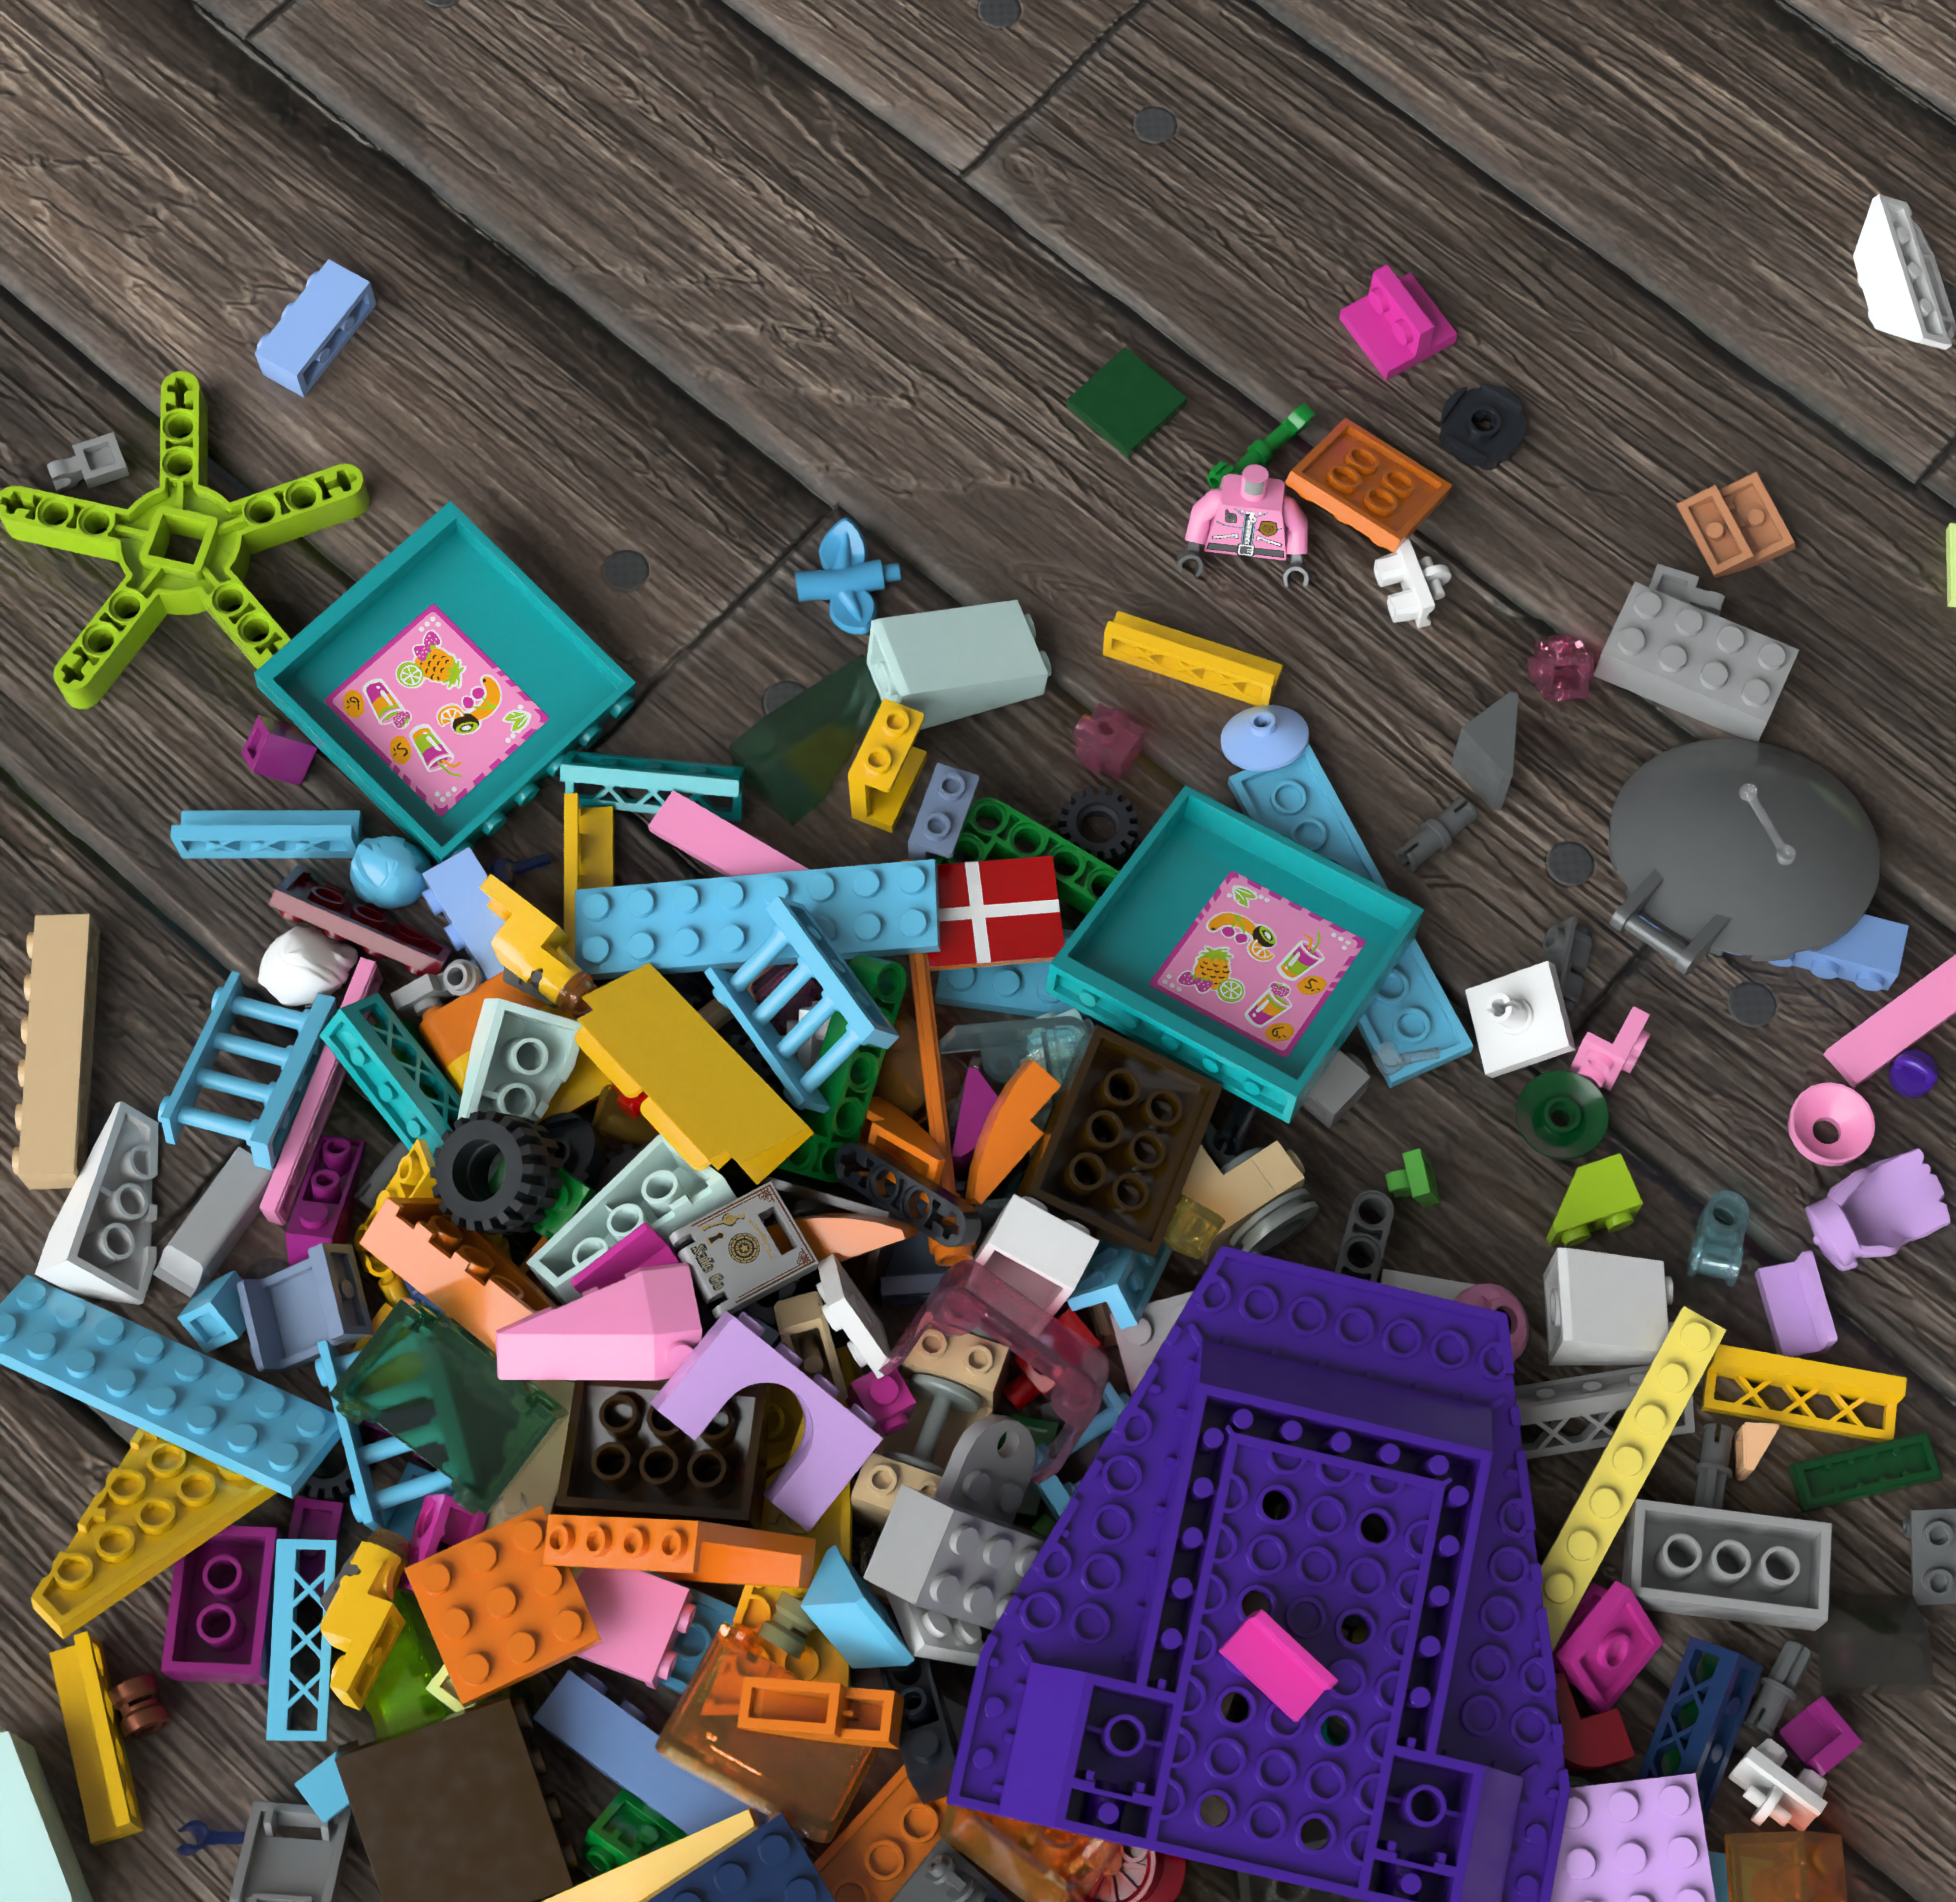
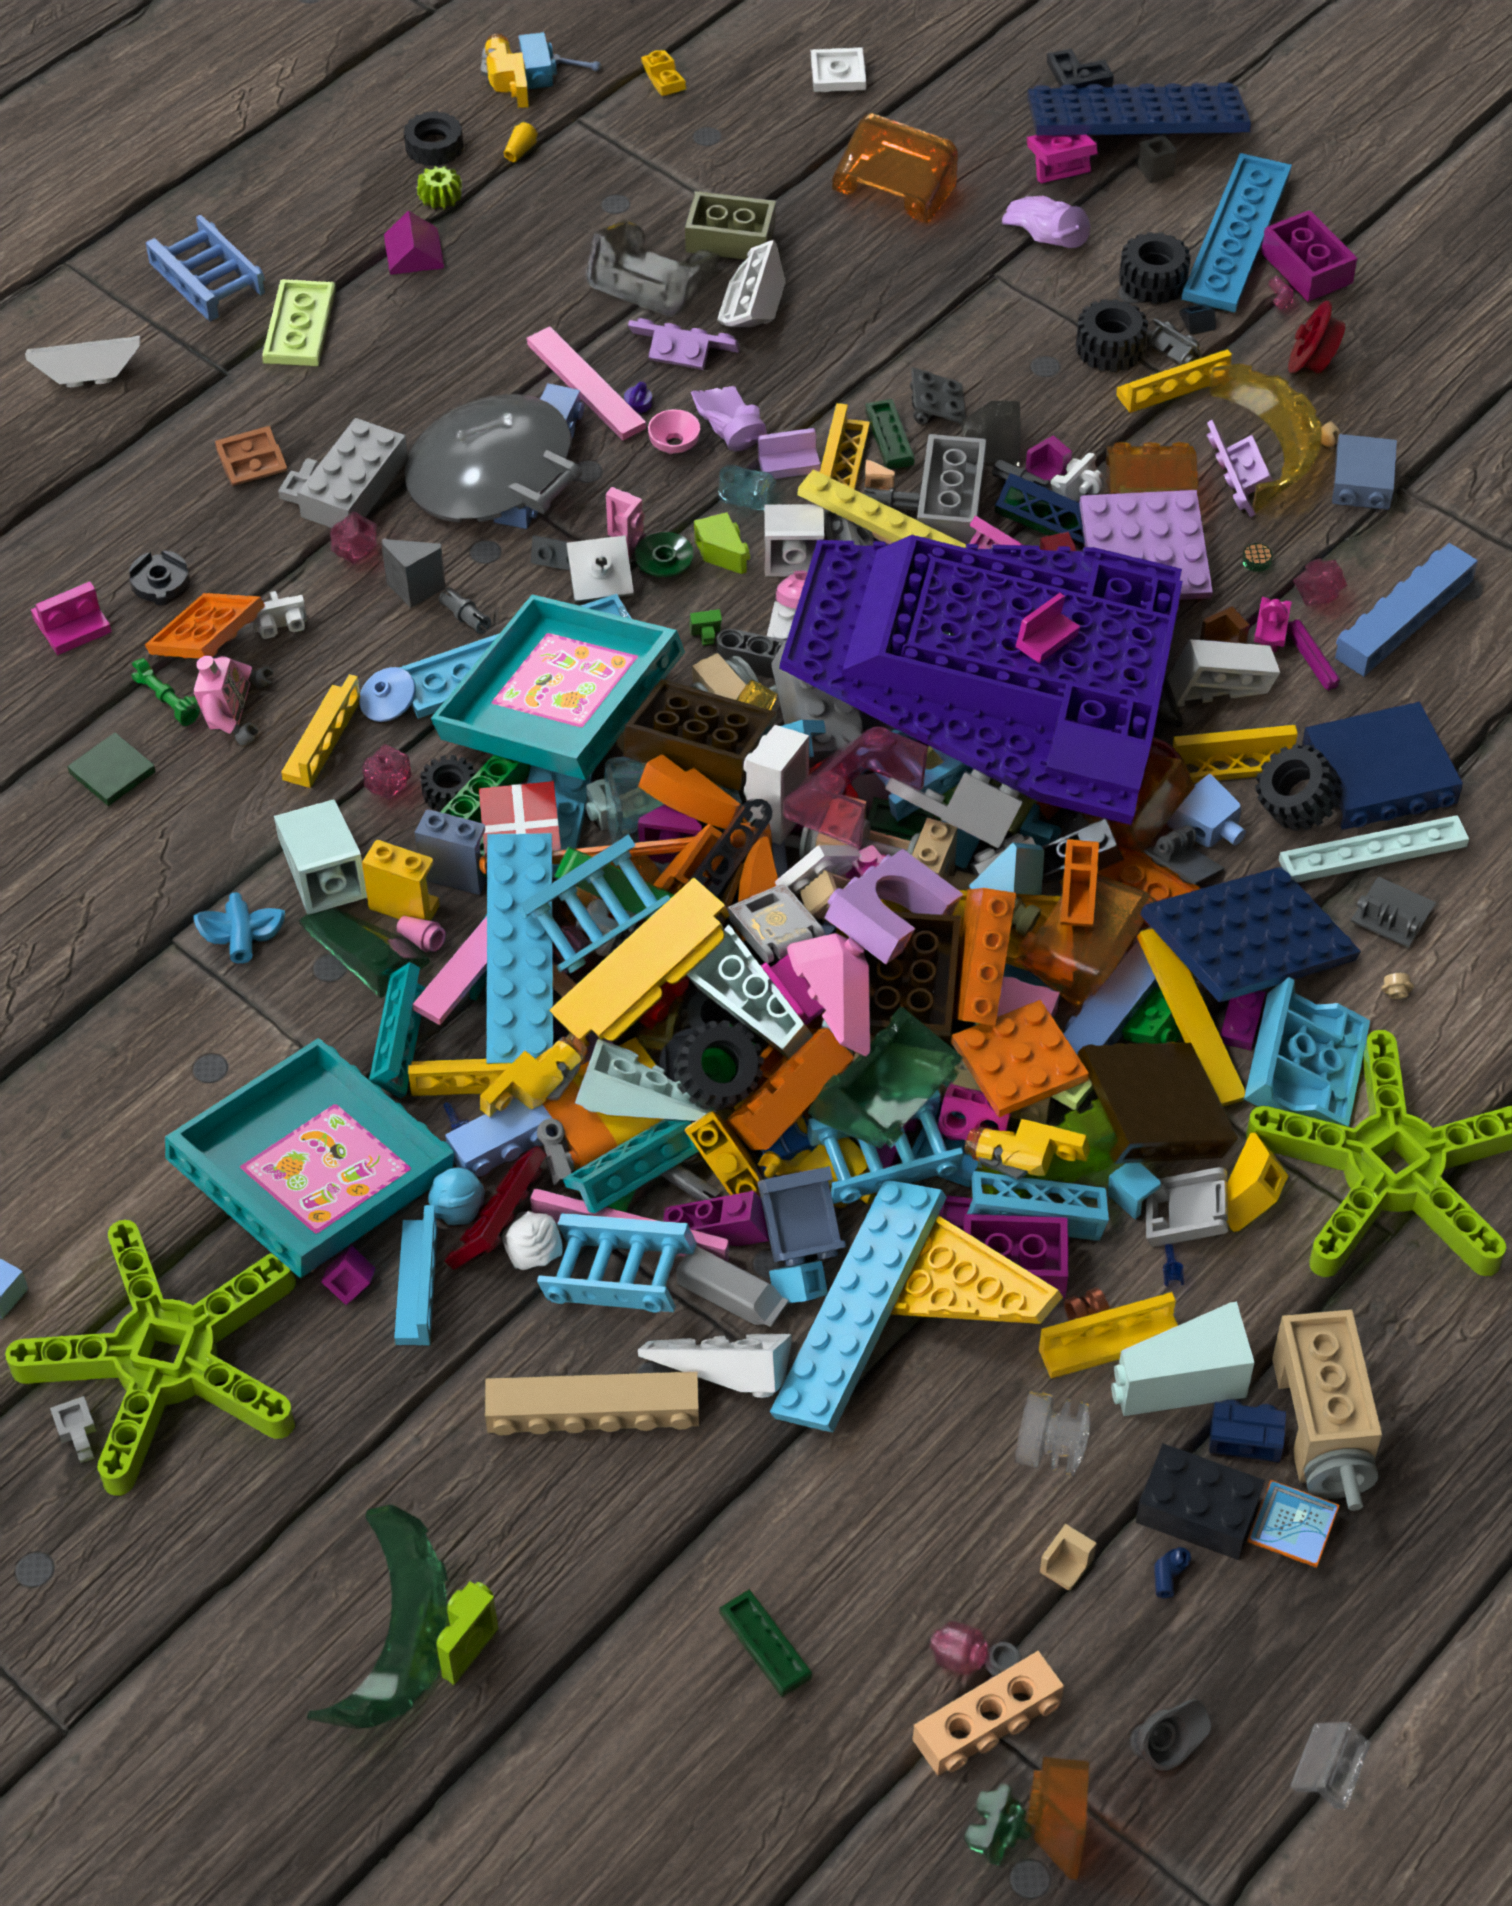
camera: 90 degrees left, 15 degrees down
(826, 809) = (422, 933): none -> bright pink cone

